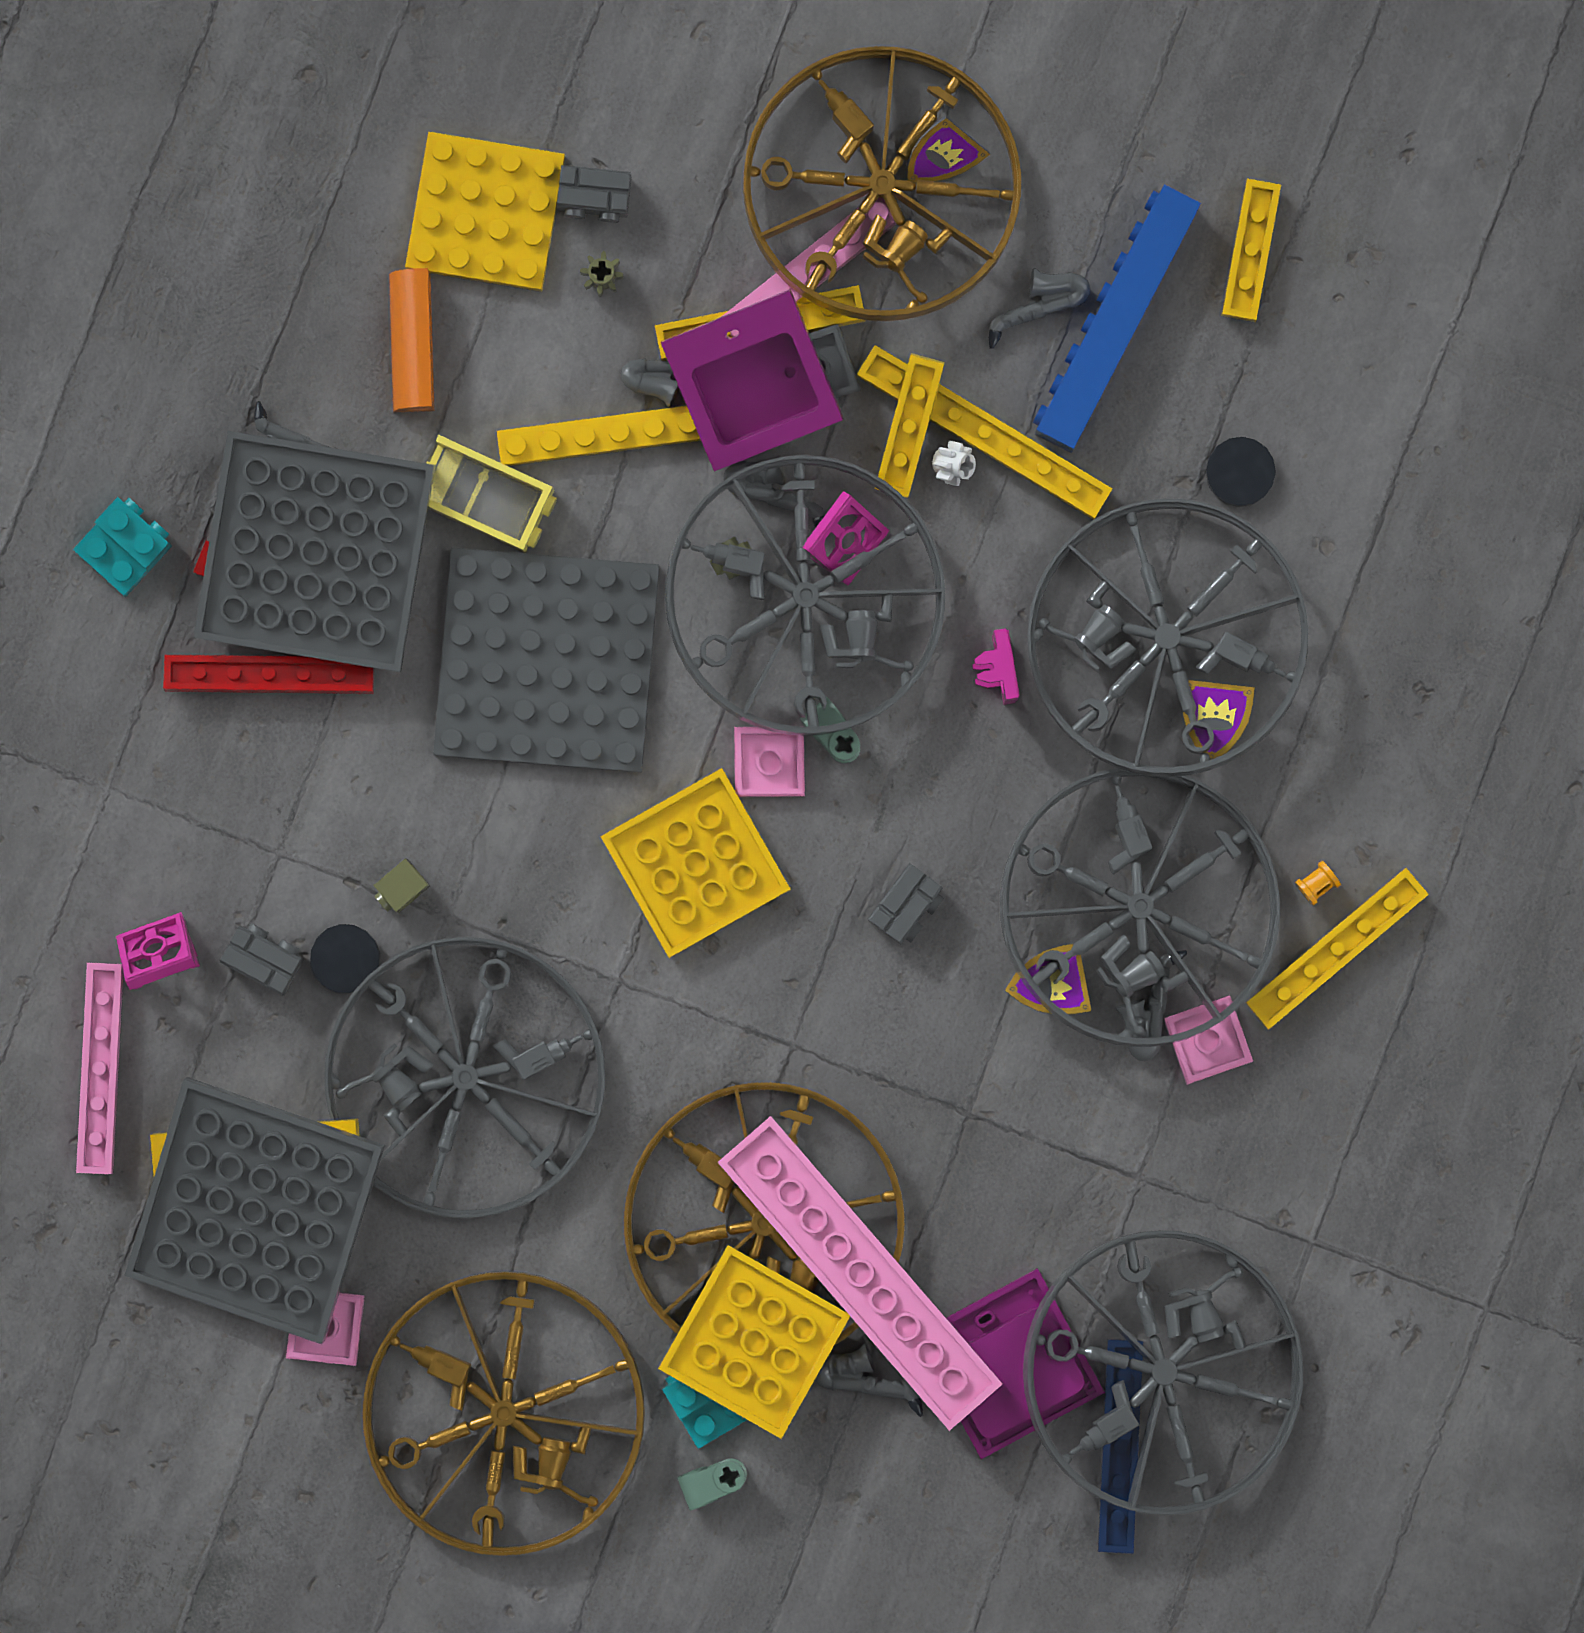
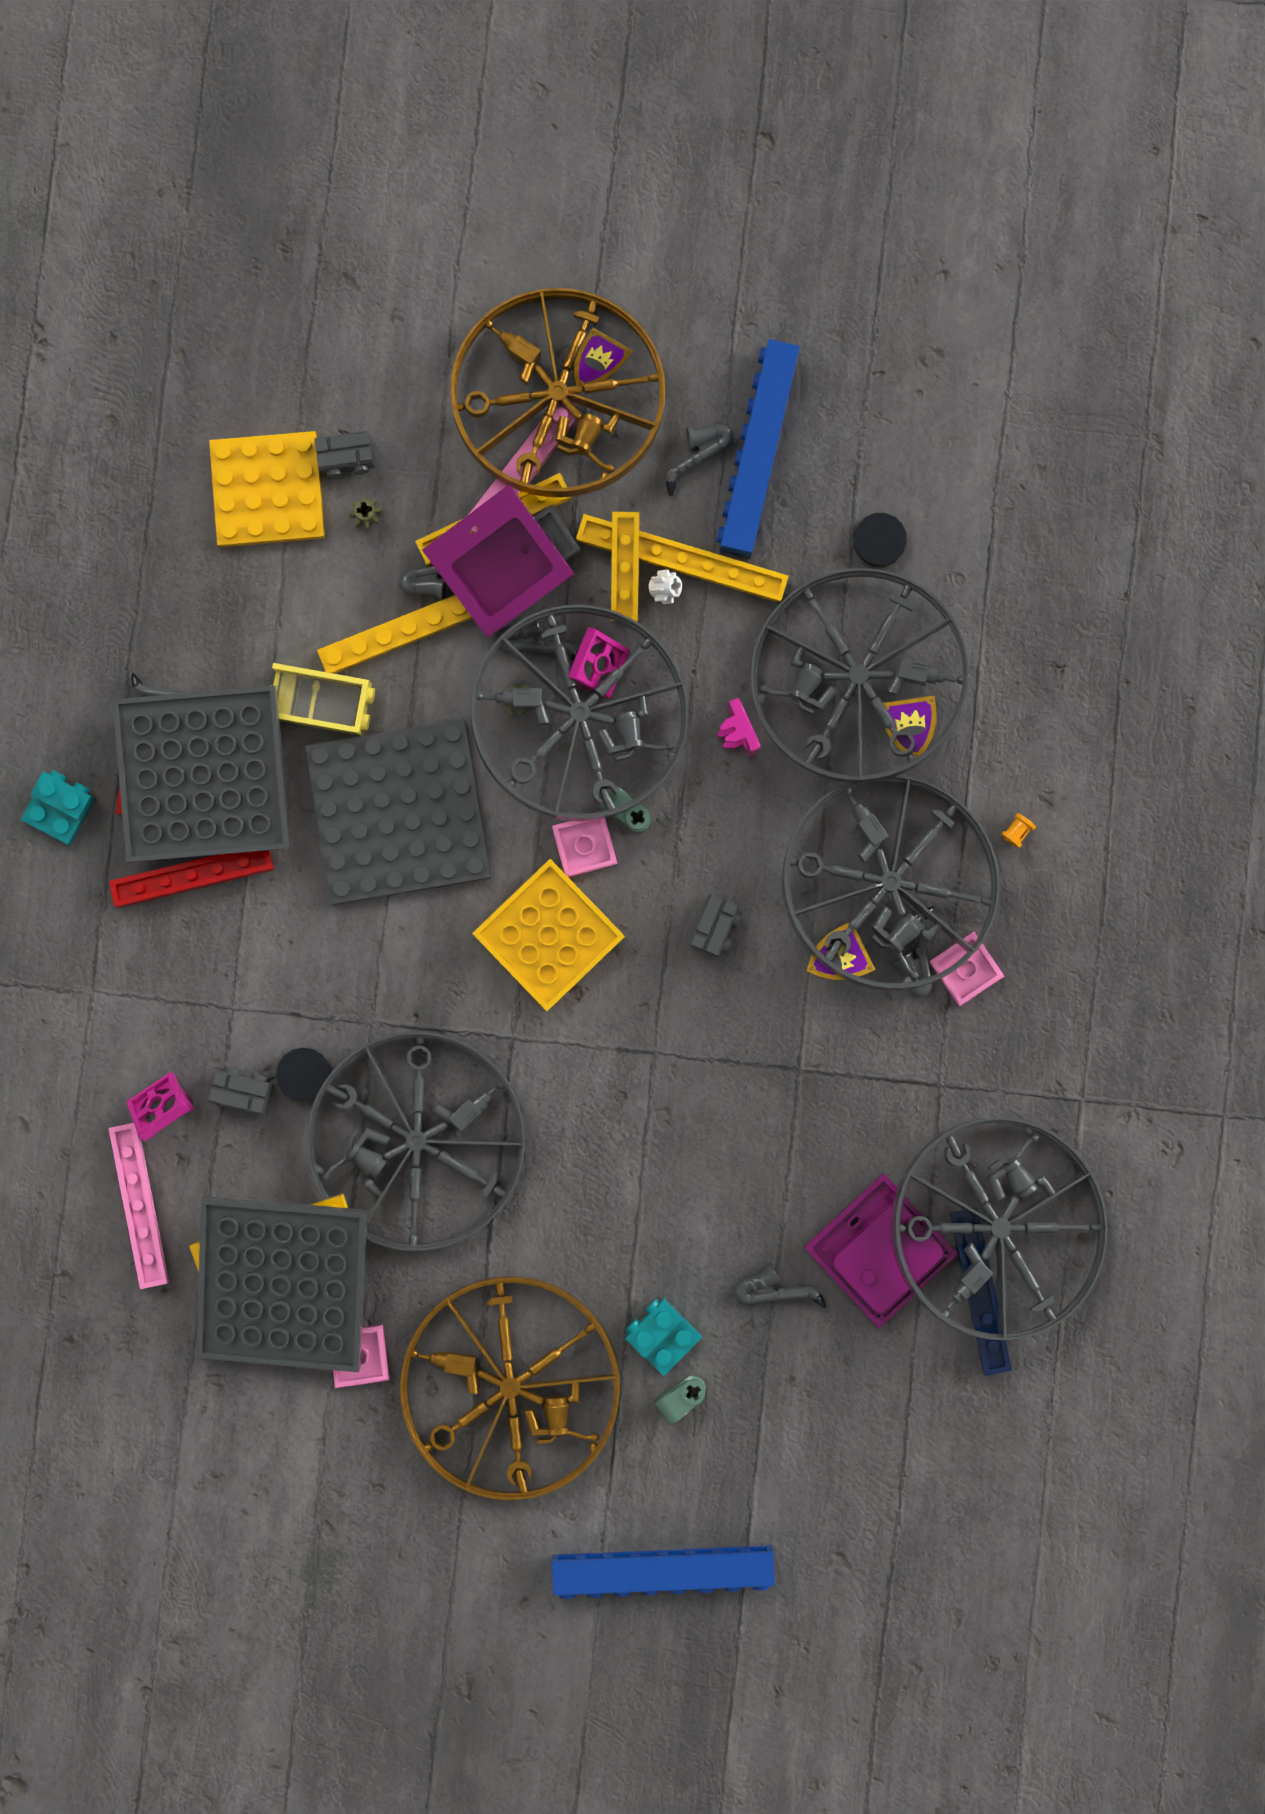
camera: 20 degrees left, 0 degrees up
(400, 887) = (331, 1009): olive brick -> none
(411, 340) = (236, 598): orange brick -> none
(708, 1165) = (710, 1220): pearl gold piece -> none
(754, 1341) = (686, 1286): yellow plate -> none
(860, 1273) = (753, 1213): bright pink plate -> none
(1251, 250) = (845, 373): yellow plate -> none
(1336, 948) = (1044, 876): yellow plate -> none

